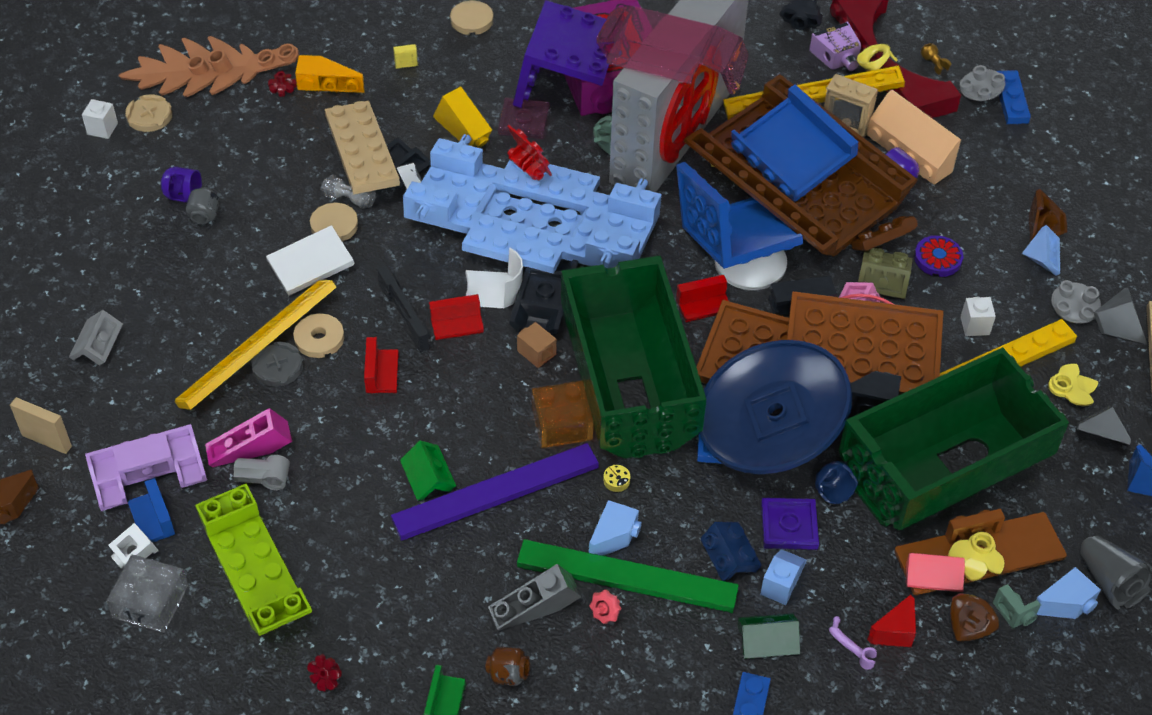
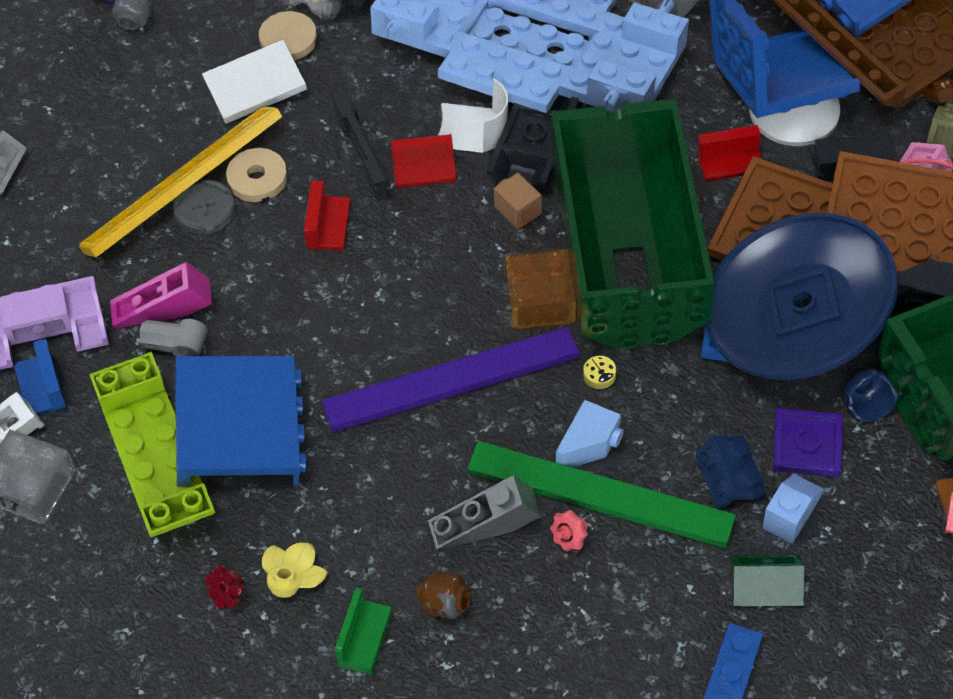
camera: 10 degrees right, 5 degrees up
(322, 532) = (237, 417): none -> blue panel
(379, 654) = (291, 569): none -> light yellow plate
(427, 470) = (370, 348): green panel -> none
(854, 648) = (879, 610): lavender piece -> none
(896, 627) = (927, 580): red slope -> none

